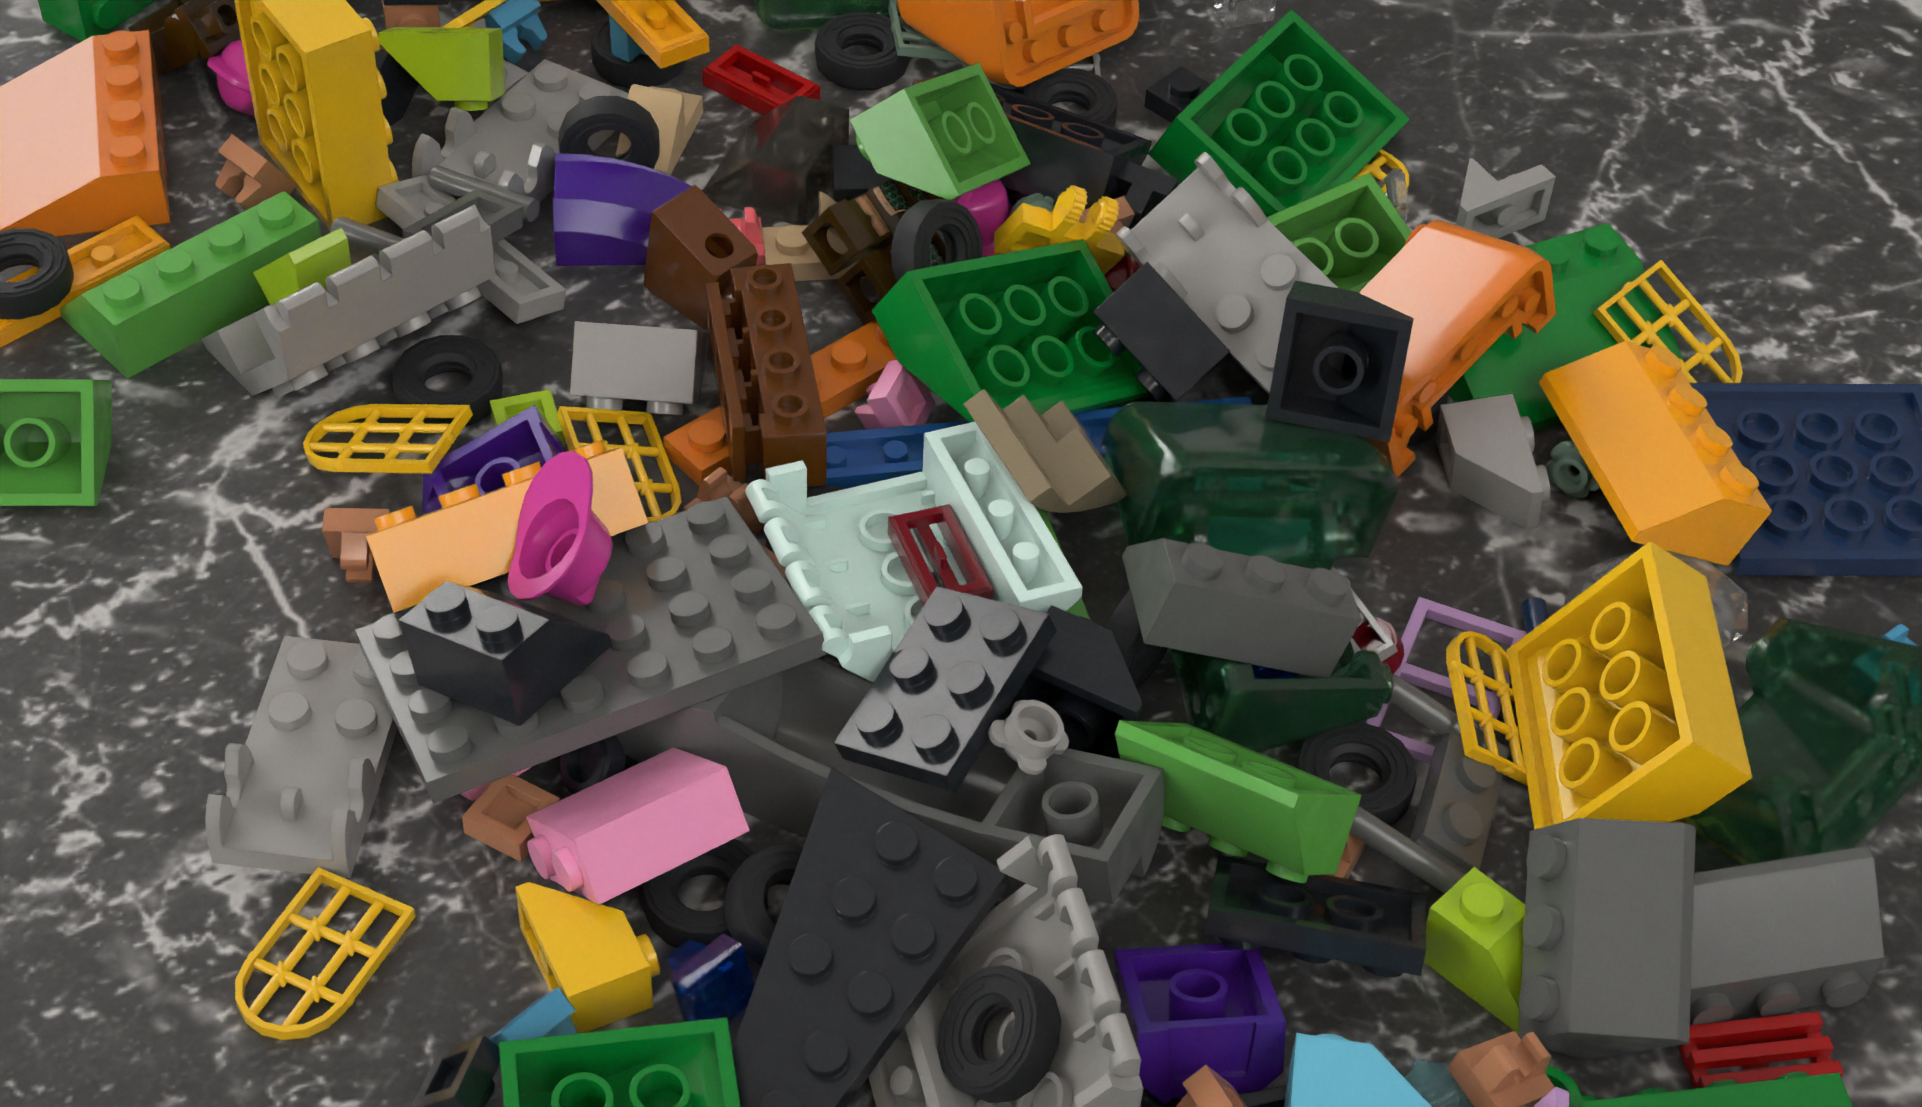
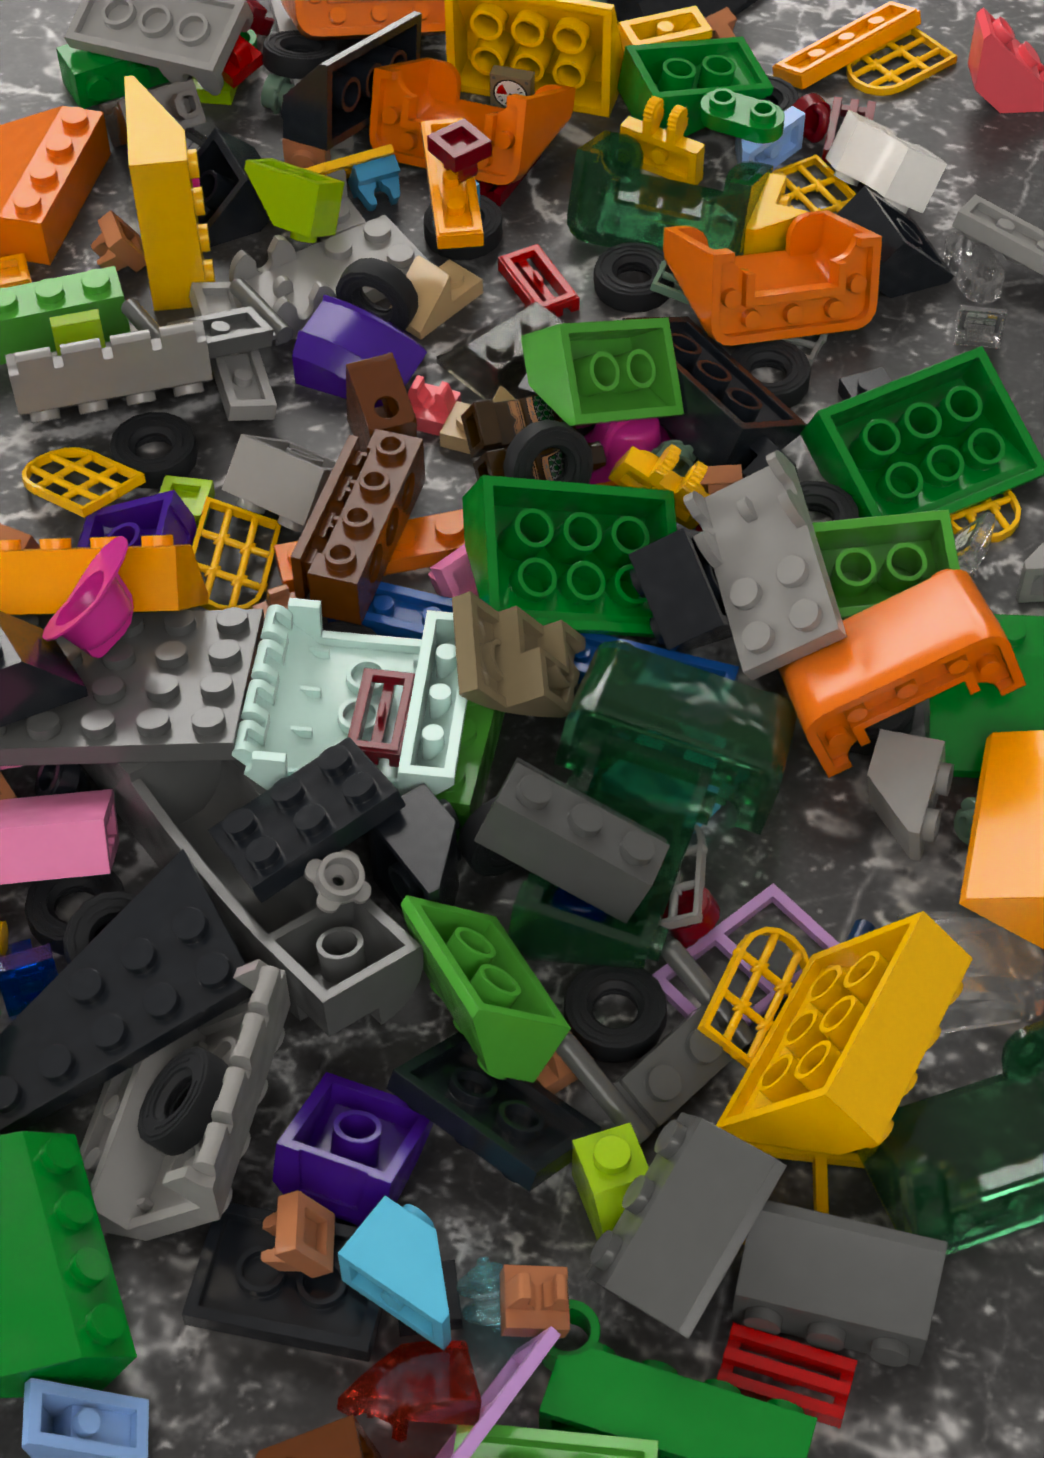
camera: 30 degrees right, 5 degrees up
(1339, 362) = (777, 661): black slope -> none

